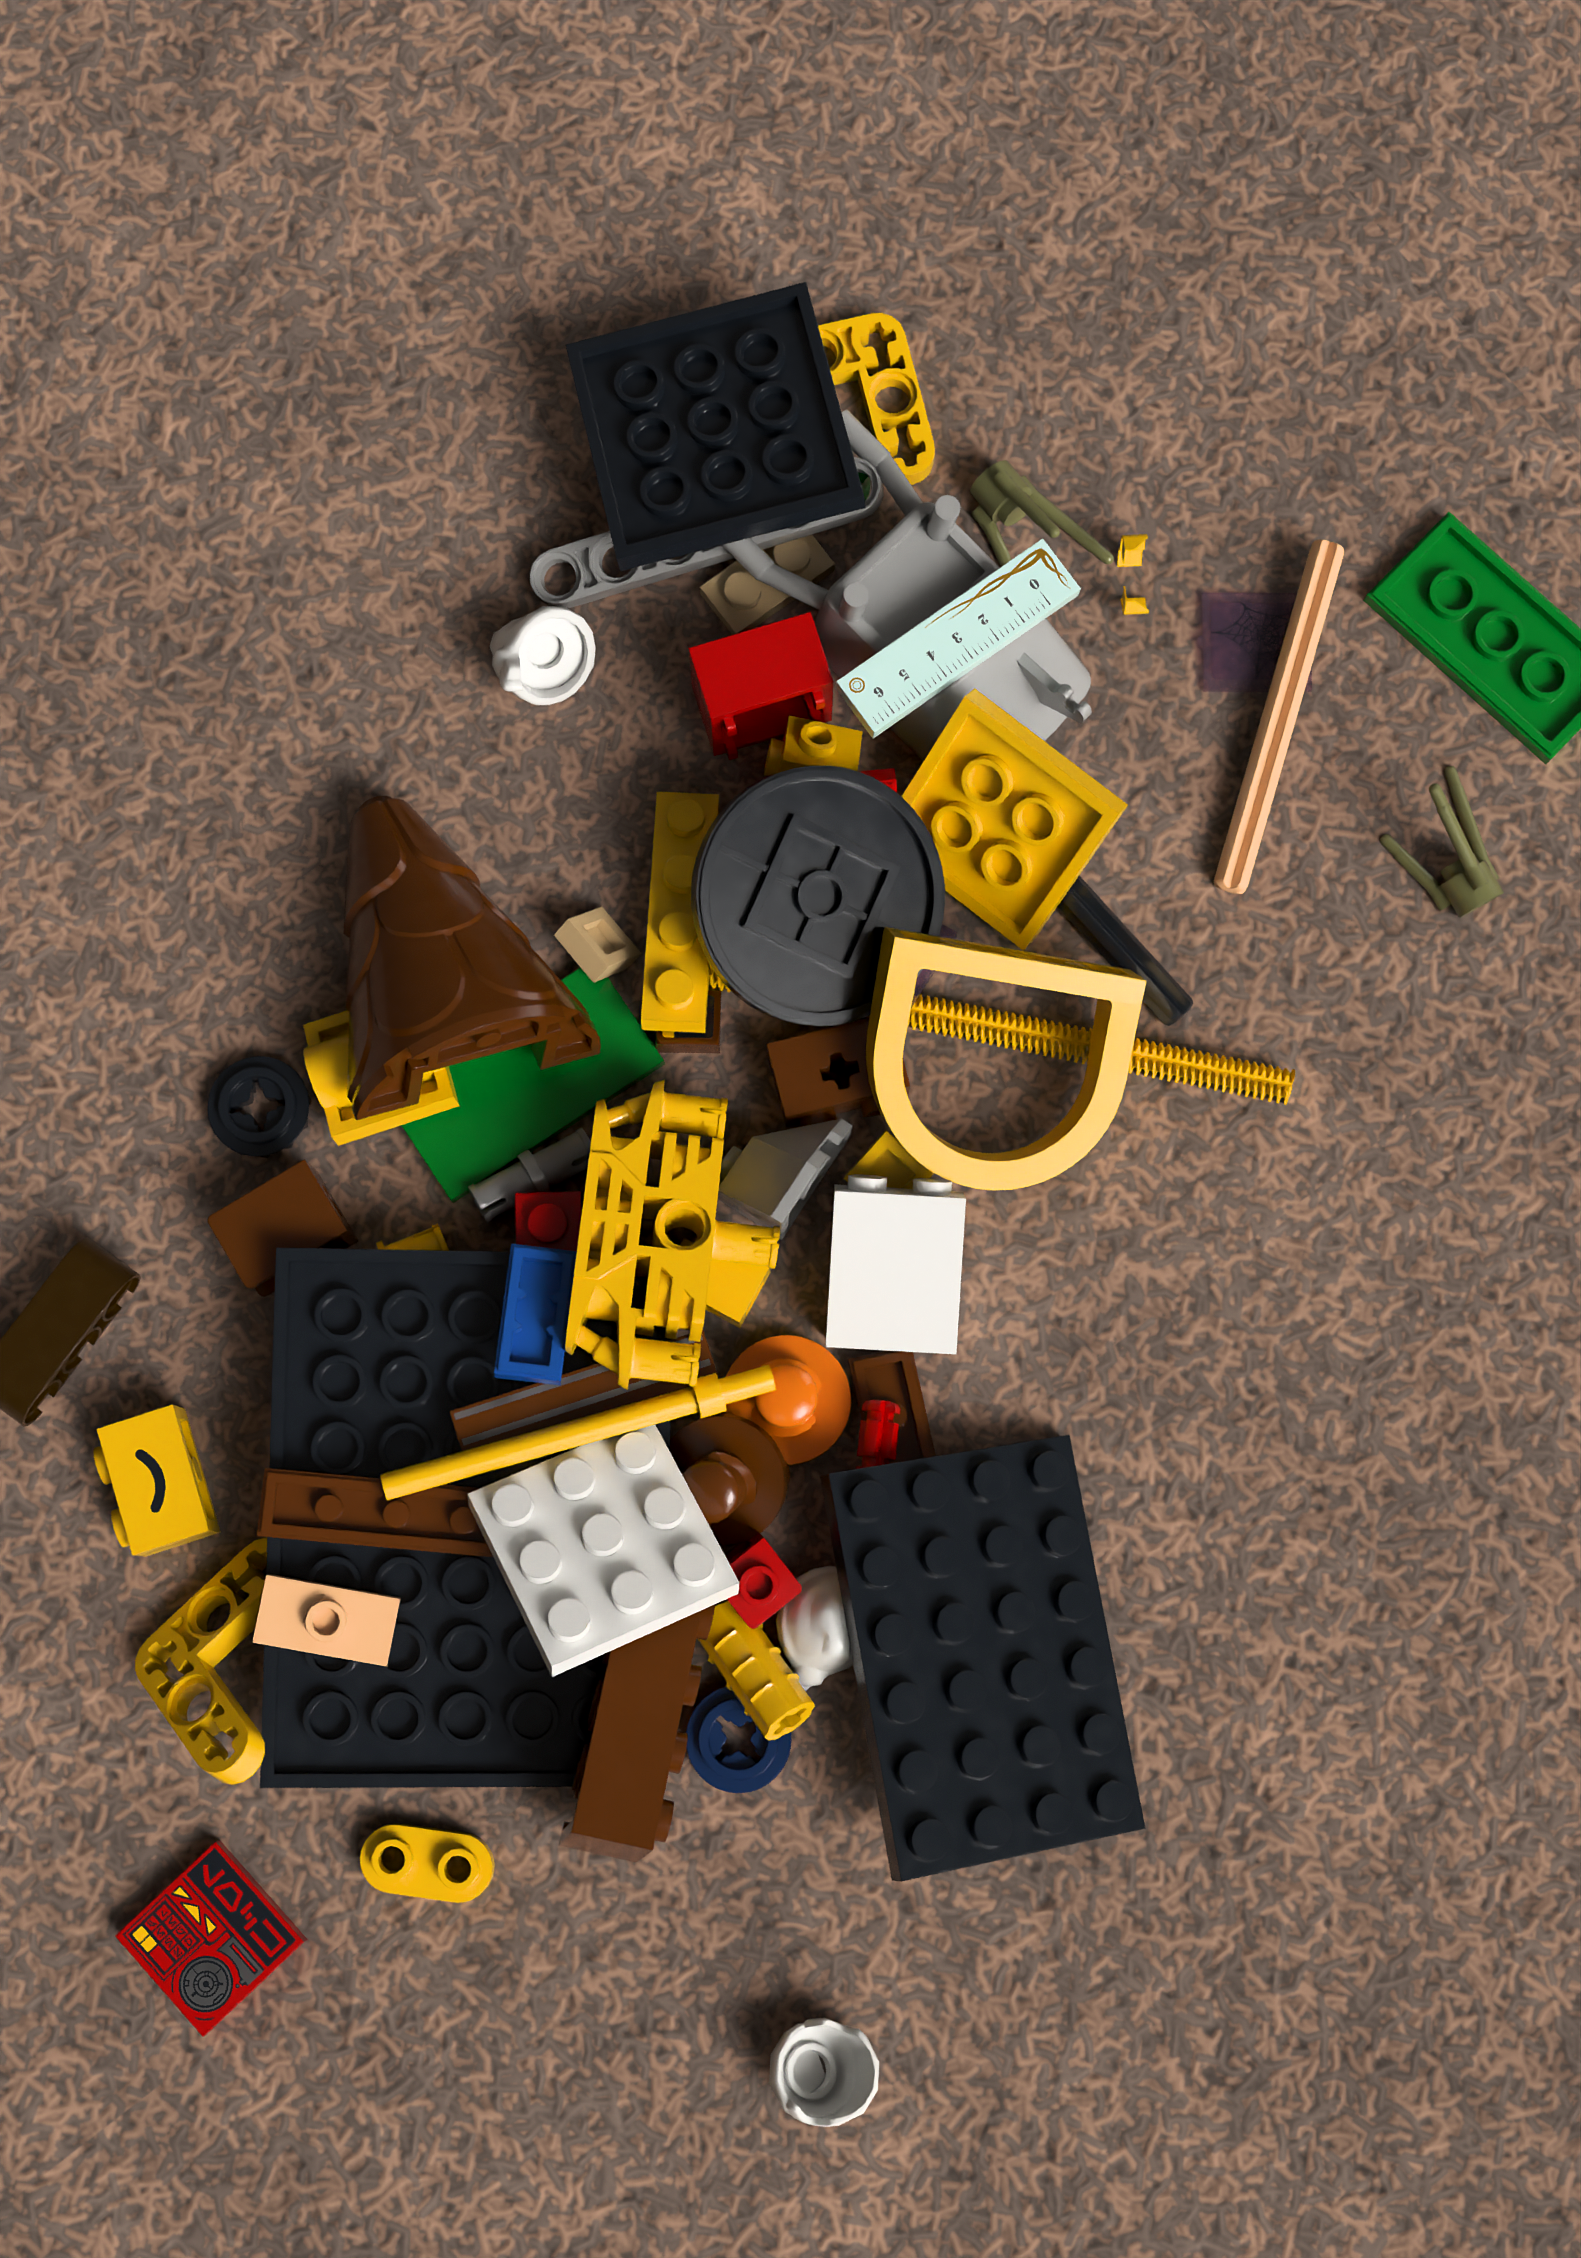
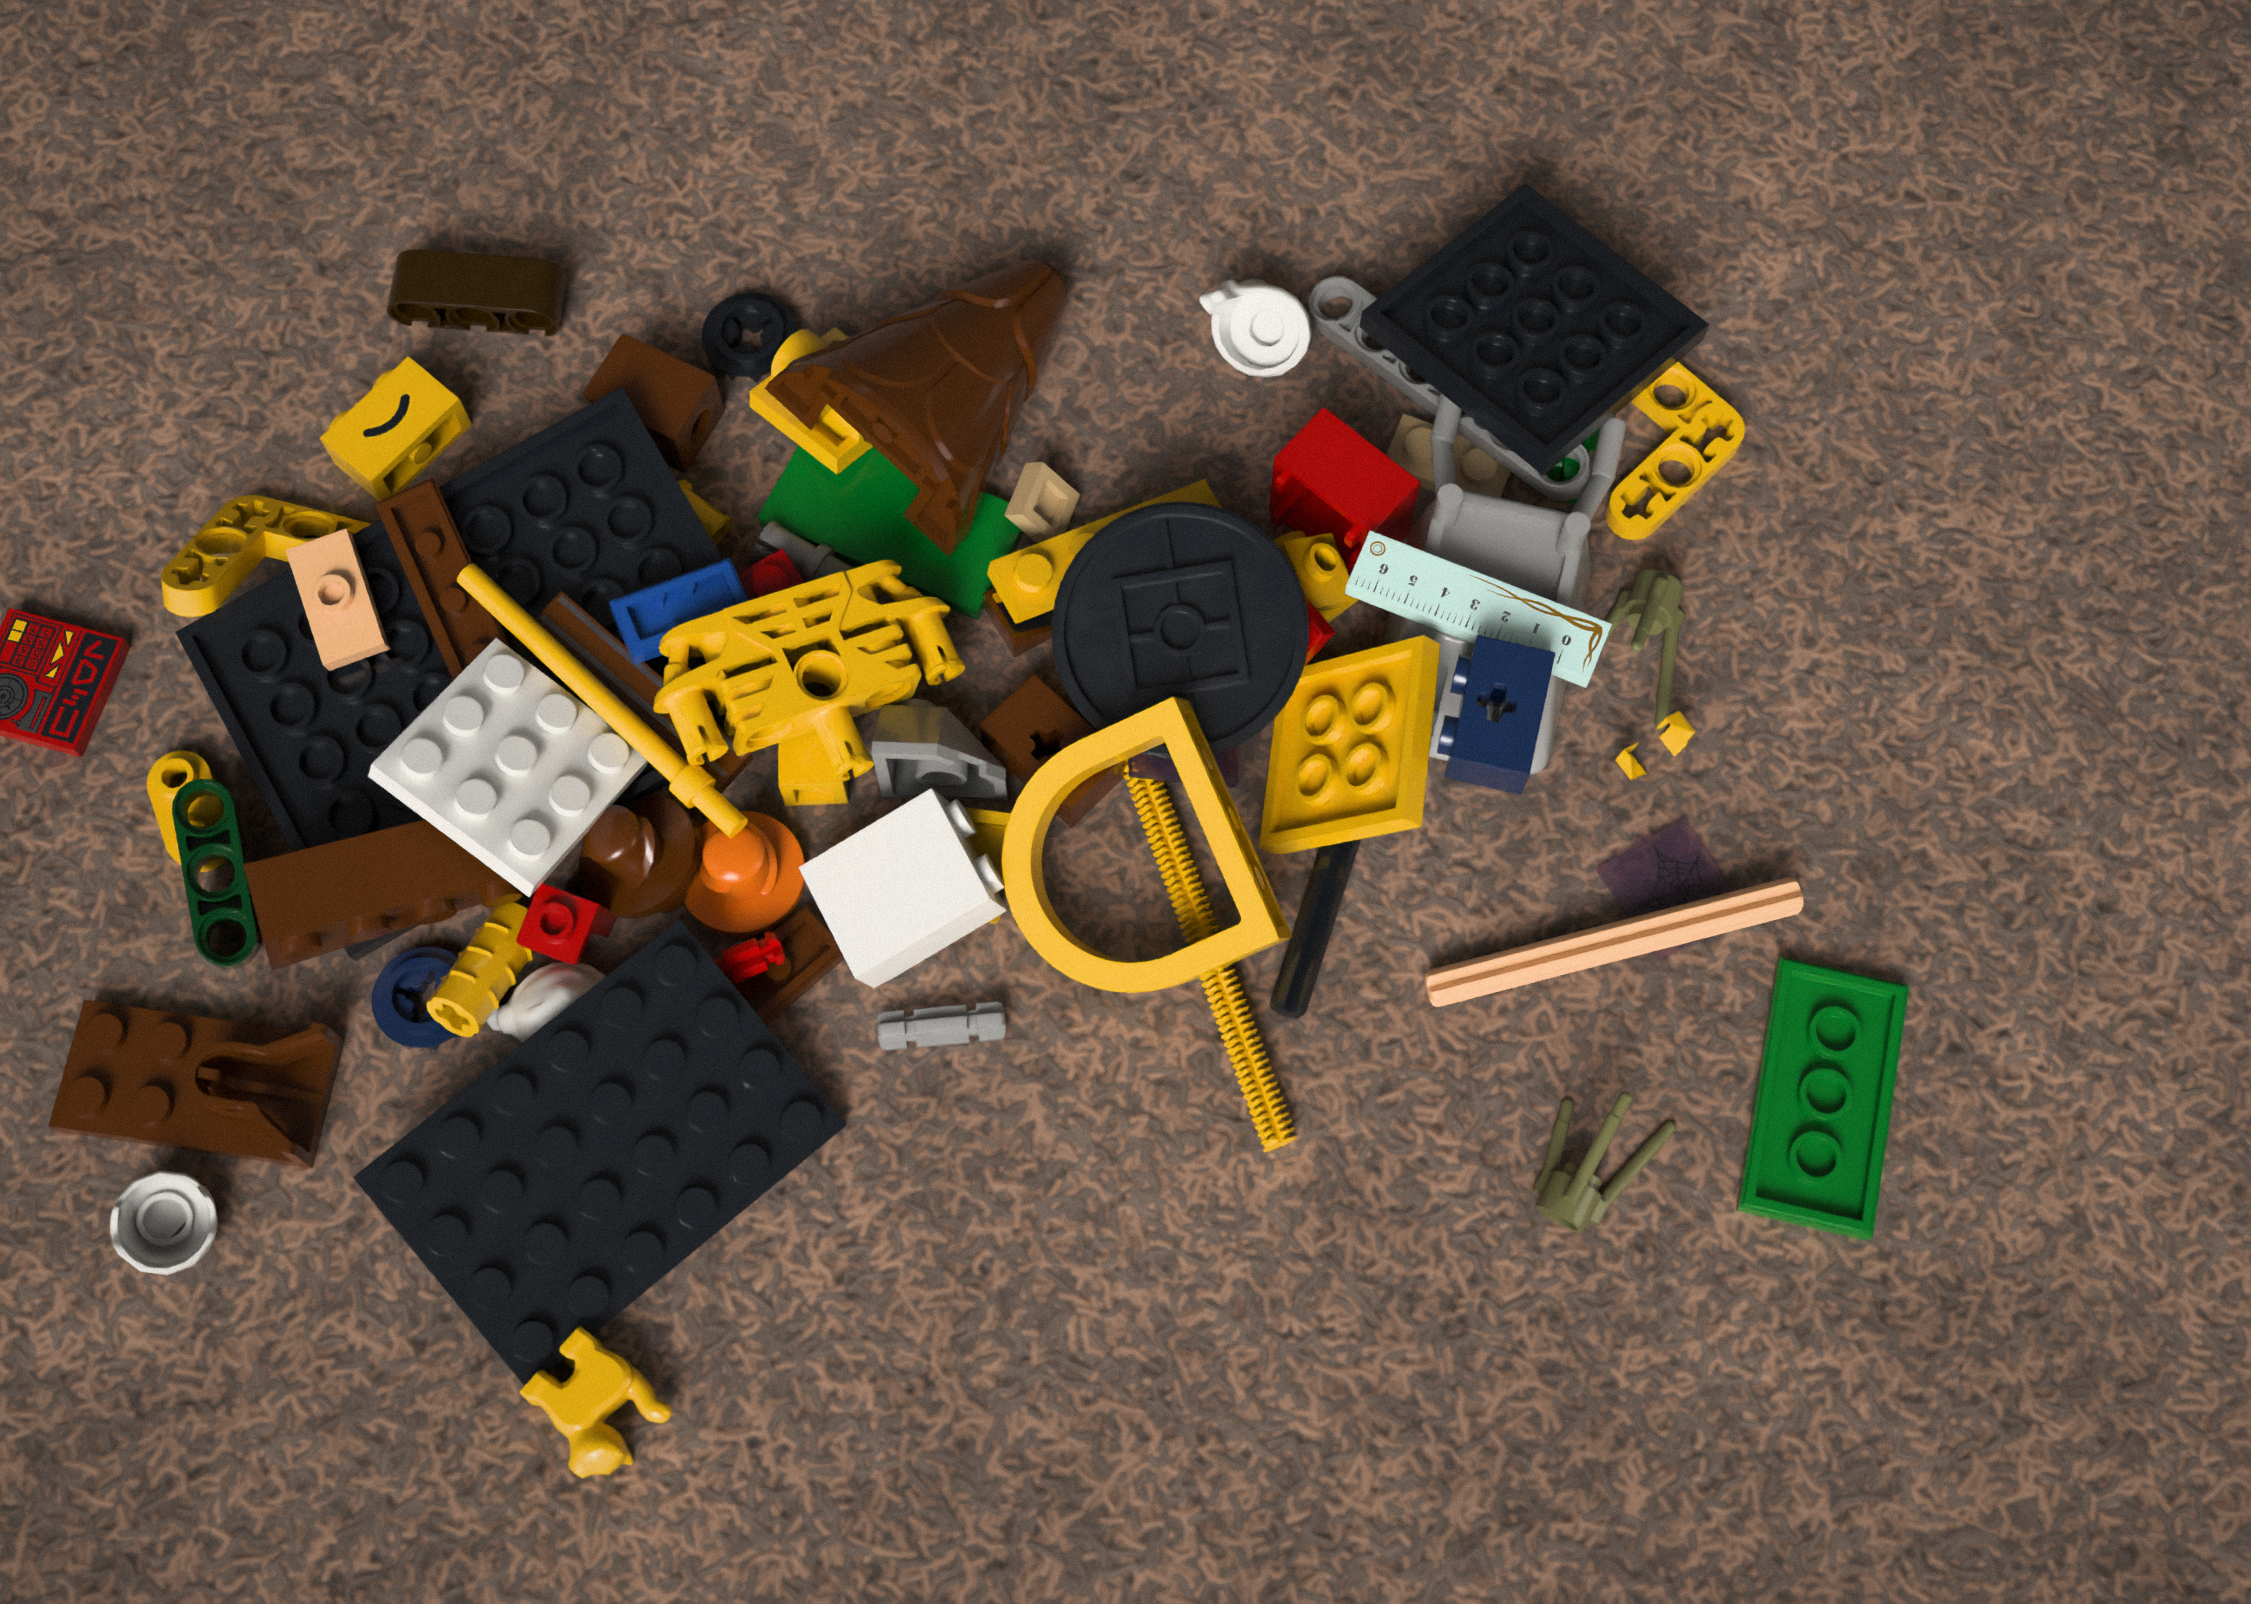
camera: 60 degrees right, 10 degrees down
(553, 1874) = (197, 848): none -> dark green beam
(698, 1983) = (198, 1083): none -> reddish brown plate
(1026, 1306) = (941, 1025): none -> light grey axle
(1059, 649) = (1515, 682): none -> dark blue brick
(1184, 1780) = (588, 1397): none -> yellow animal

